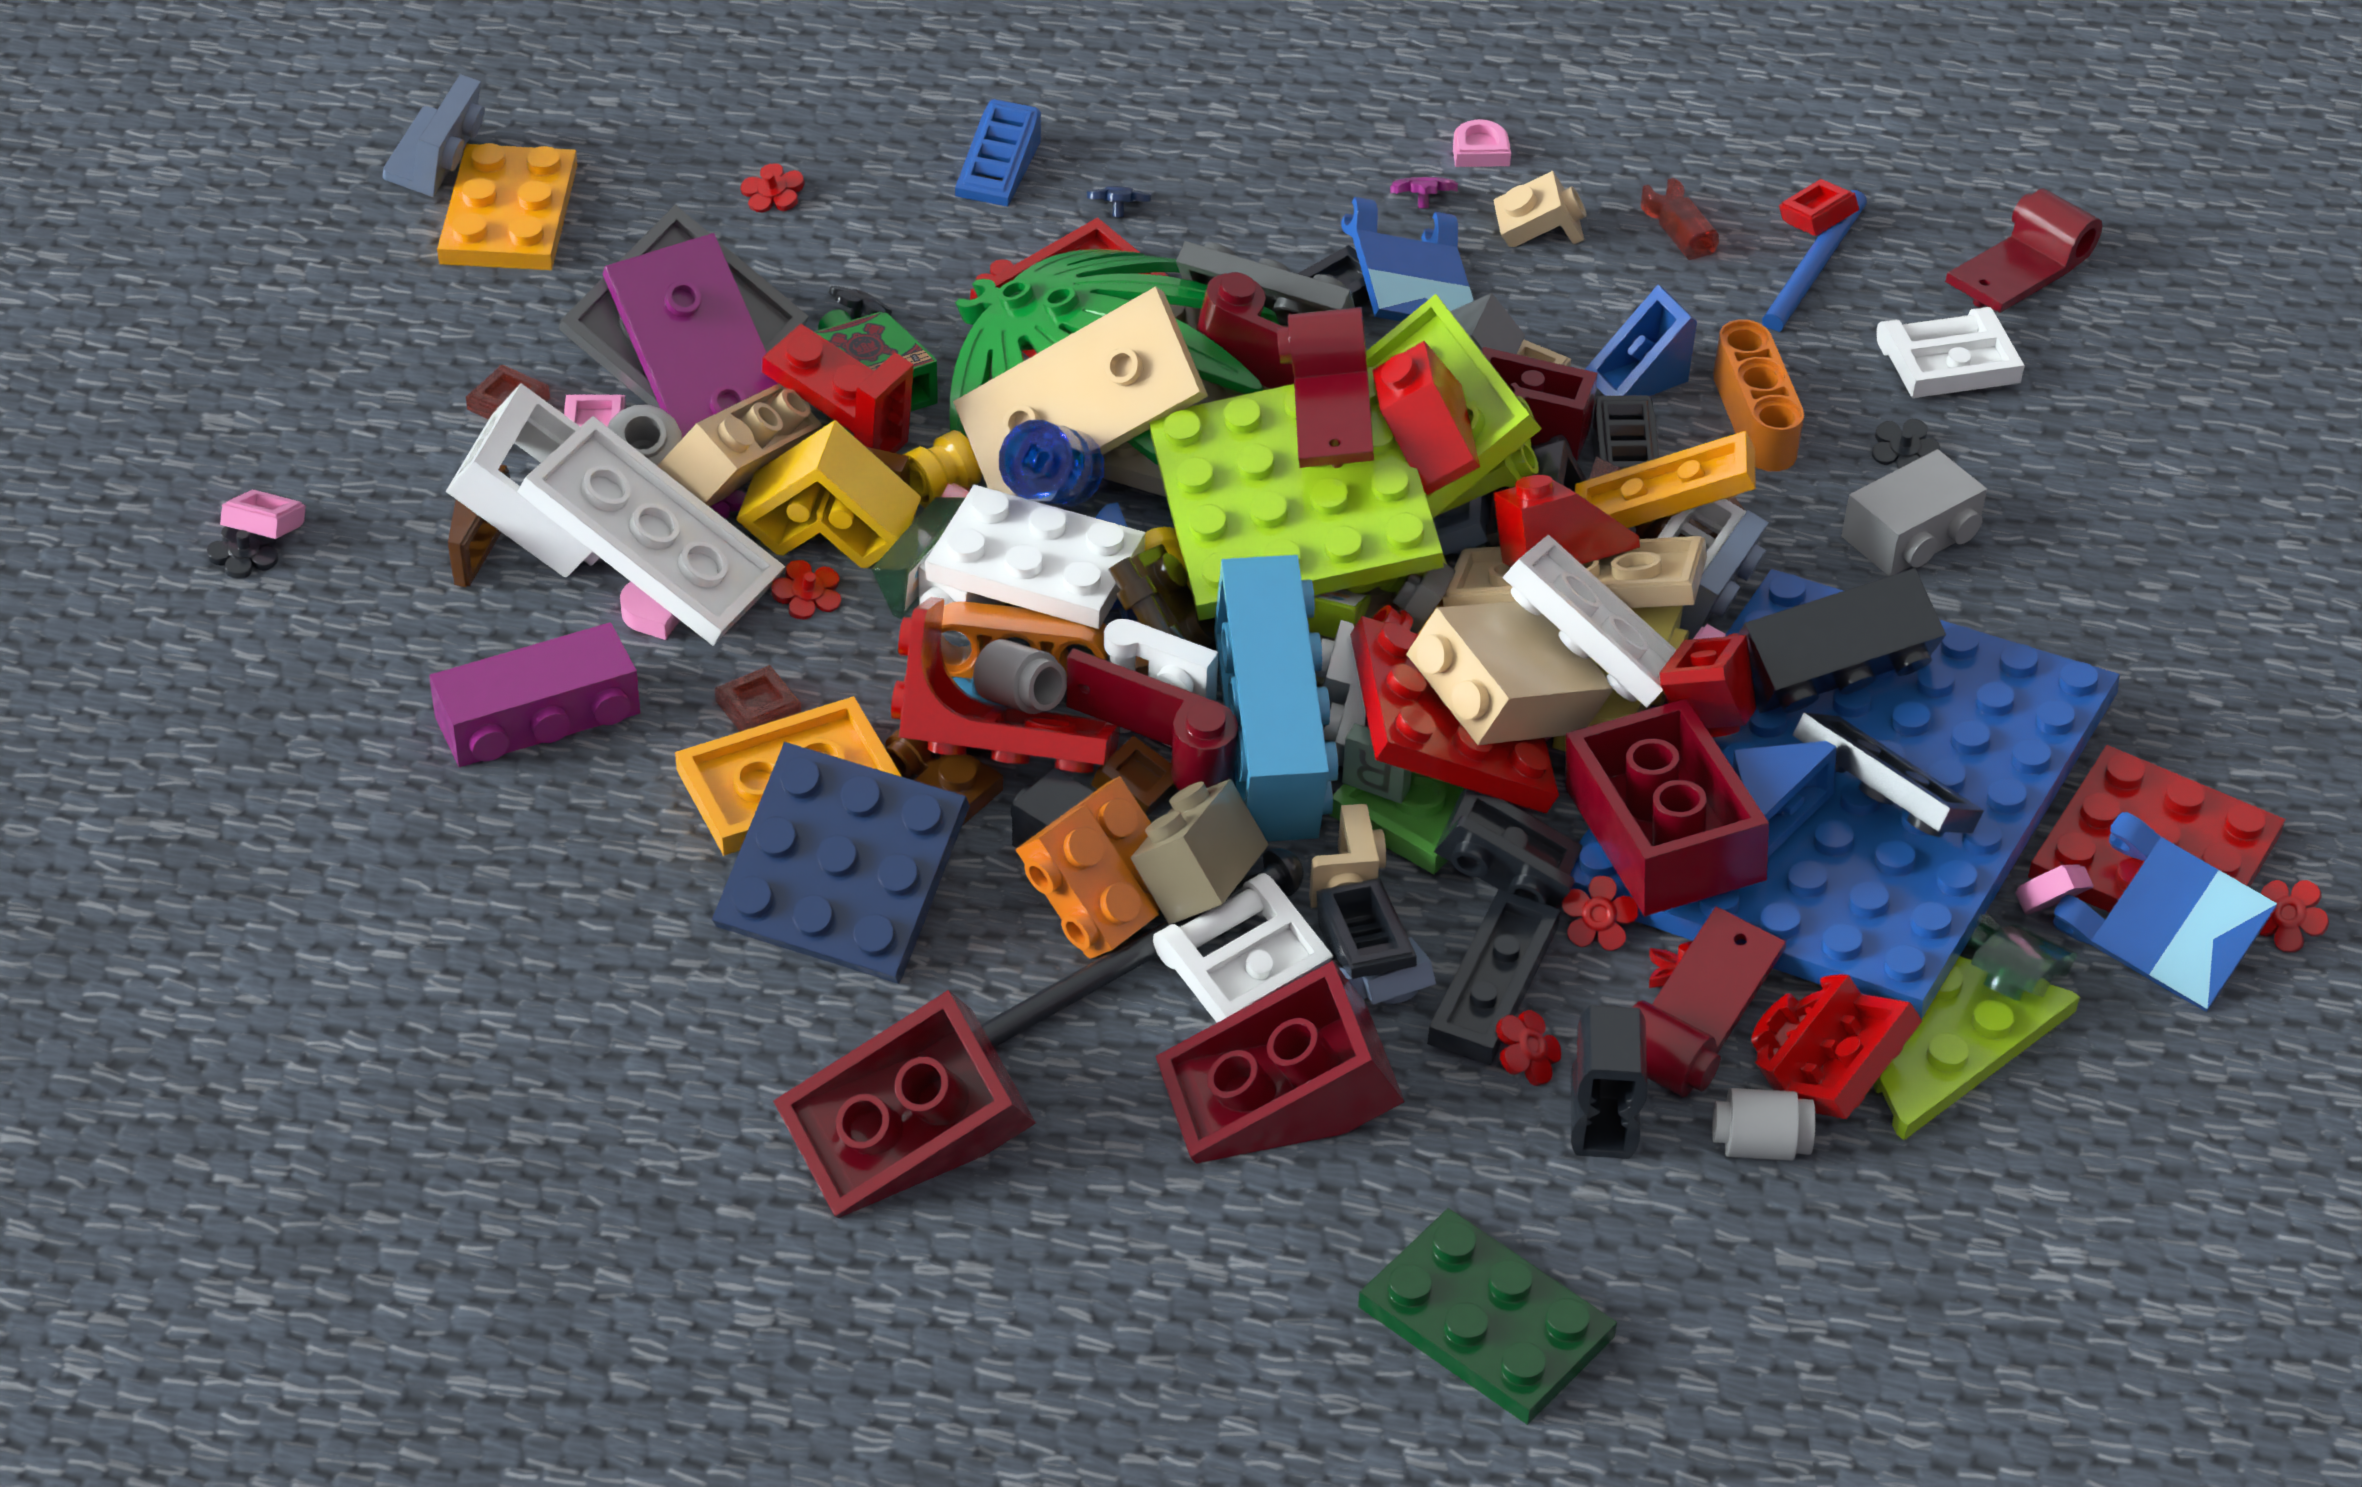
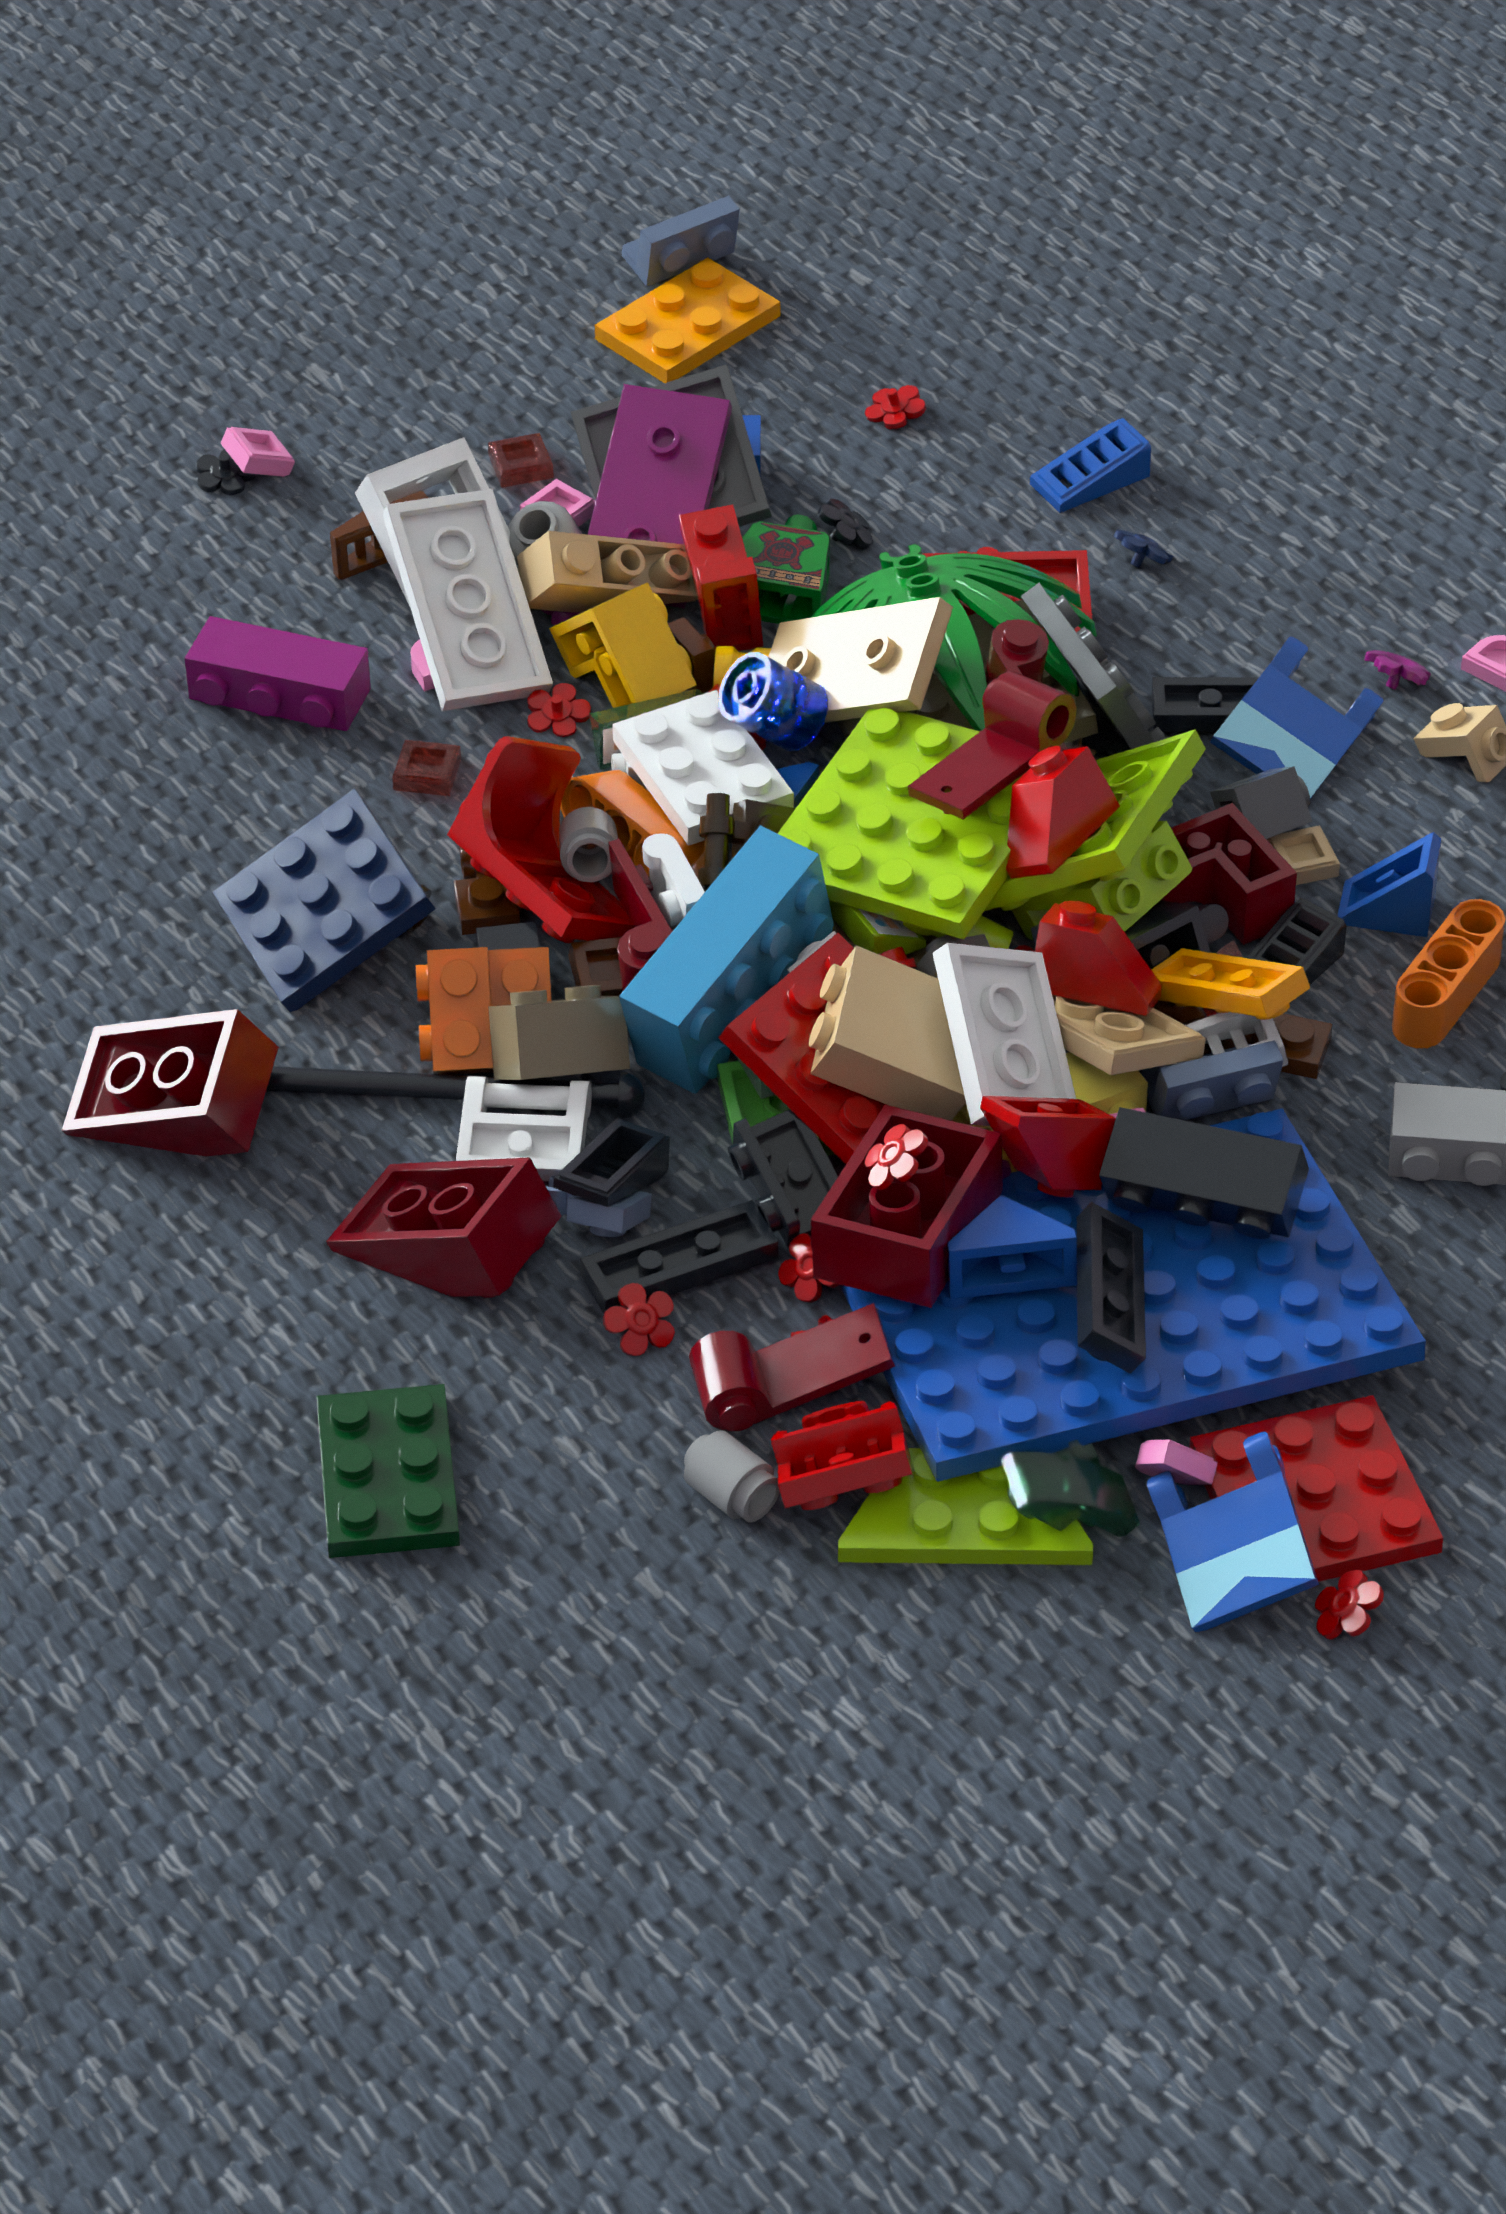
camera: 45 degrees right, 0 degrees up
(733, 771) = (410, 814): light orange plate -> none
(1359, 856) = (685, 1117): tan bracket -> none
(1608, 1082) = (635, 1366): black brick -> none
(1655, 763) = (895, 1156): none -> plant

